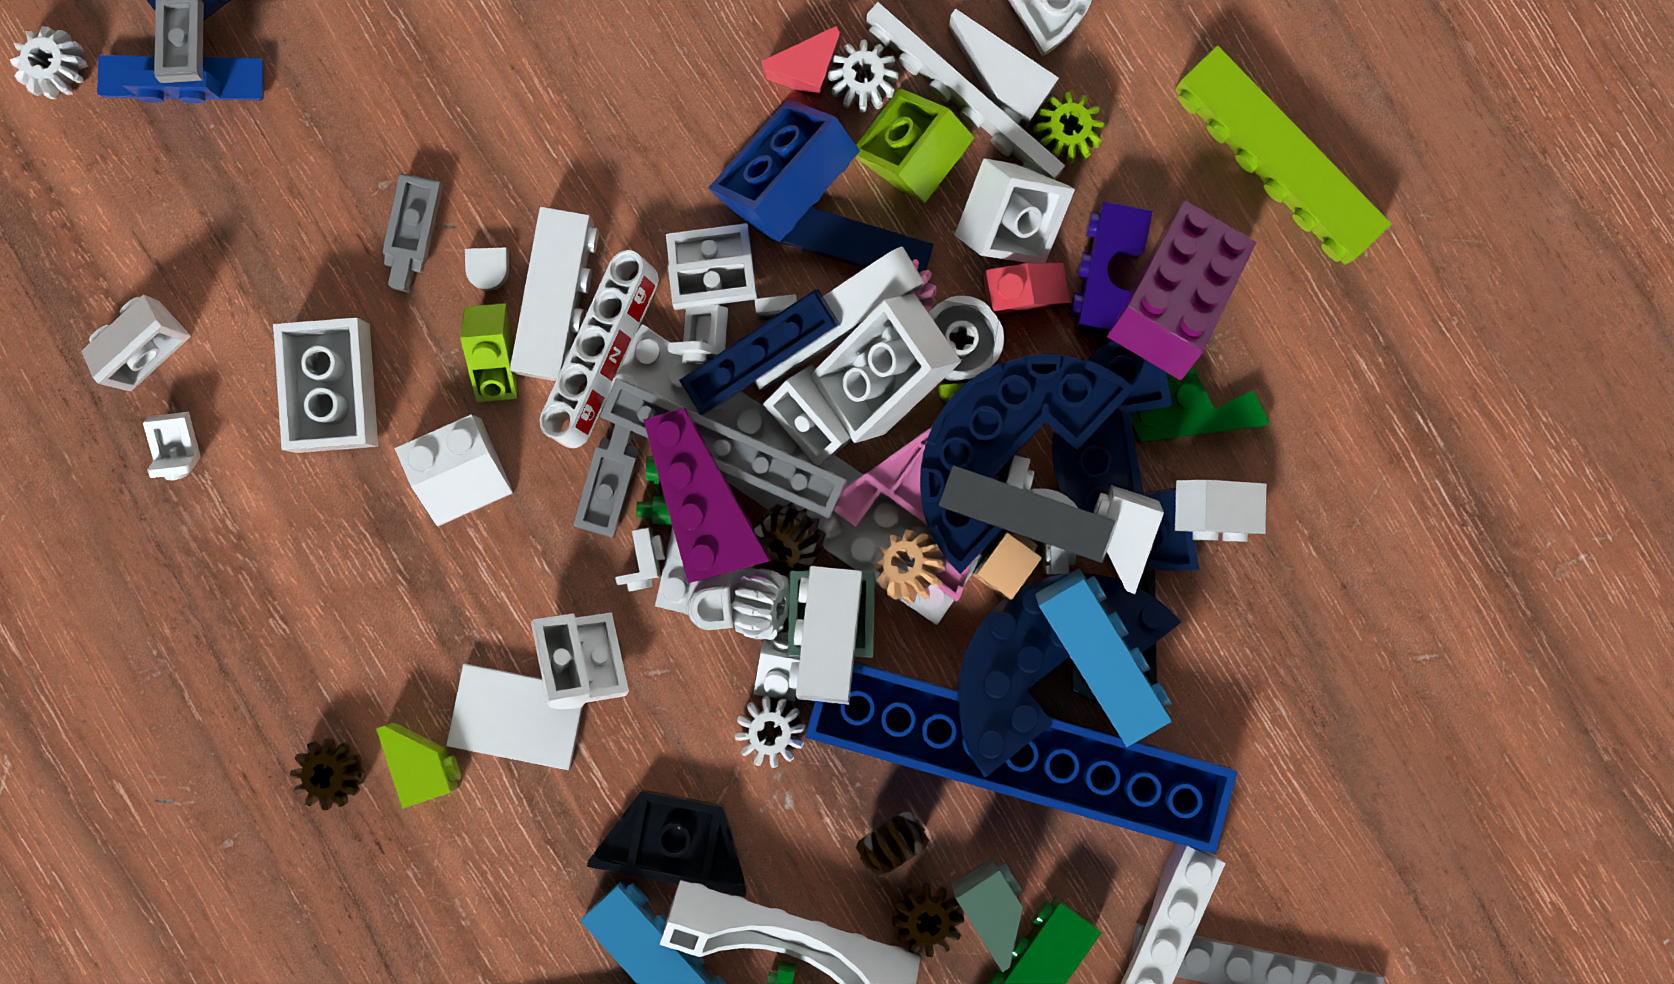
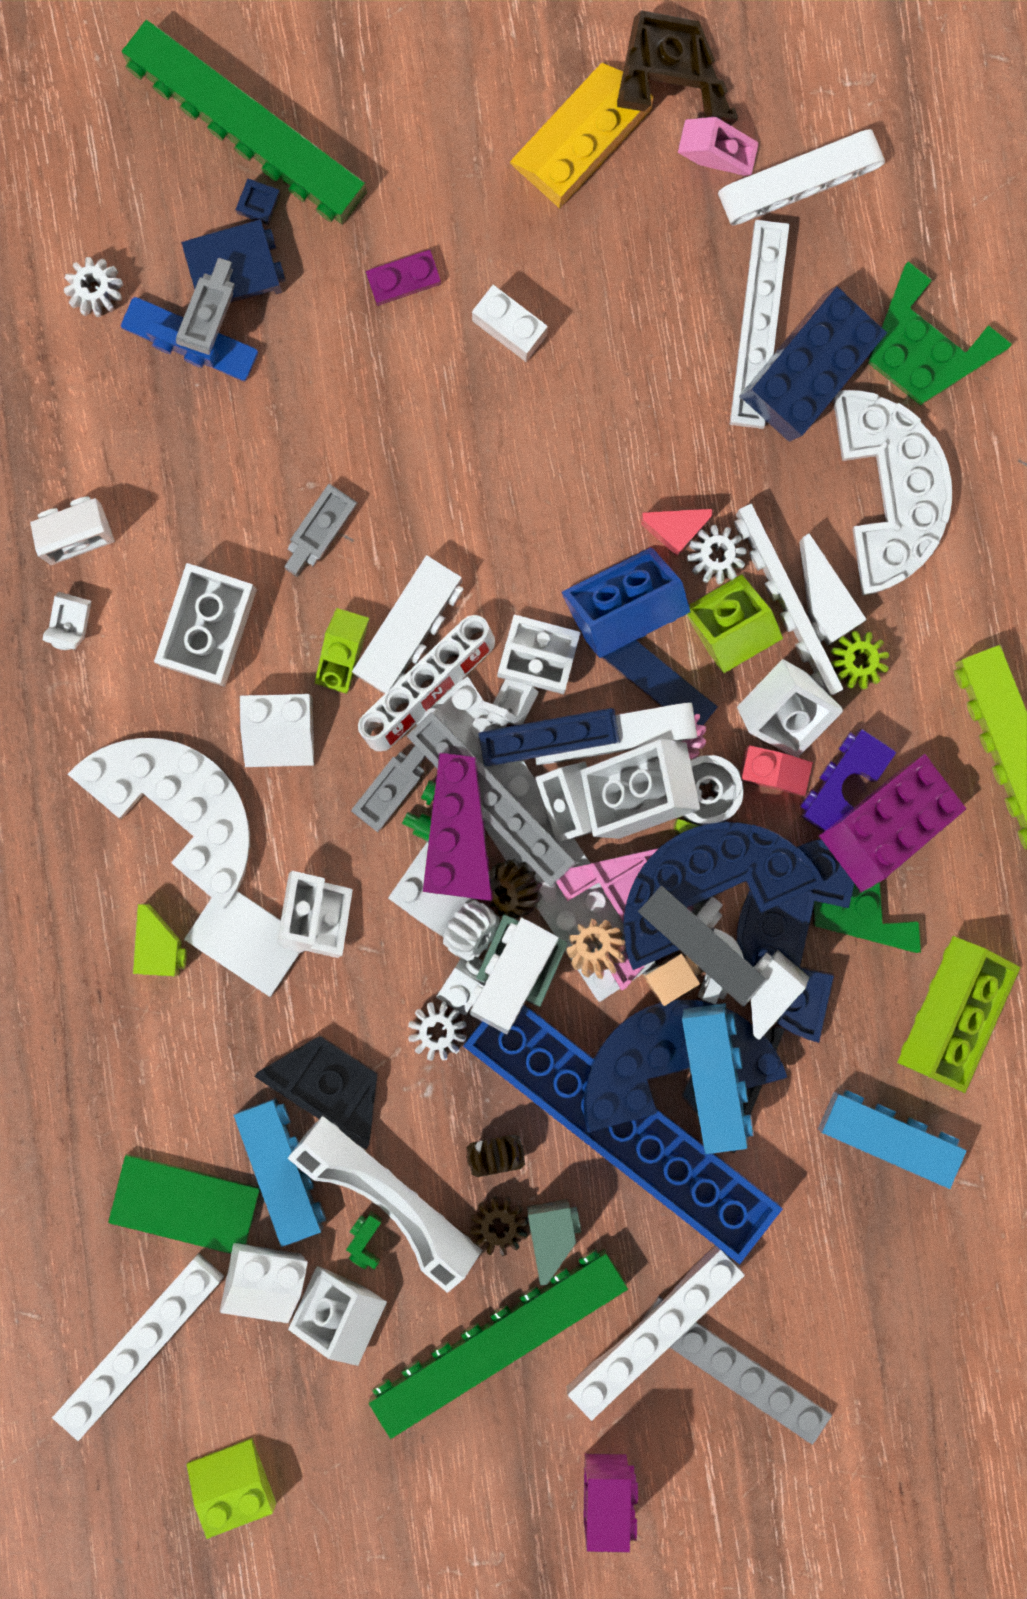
camera: 20 degrees right, 0 degrees up
(316, 762) = (92, 932): dark brown gear -> none
(386, 579) = (190, 792): none -> white plate
(487, 267) = (365, 583): white tile -> none
(648, 551) = (400, 854): white bracket -> none
(711, 608) = (431, 917): white tile -> none
(771, 306) = (575, 705): white tile -> none
(1220, 507) = (855, 1002): white brick -> none
(1324, 642) = (891, 1139): none -> dark azure brick
(1339, 473) = (958, 1014): none -> lime slope

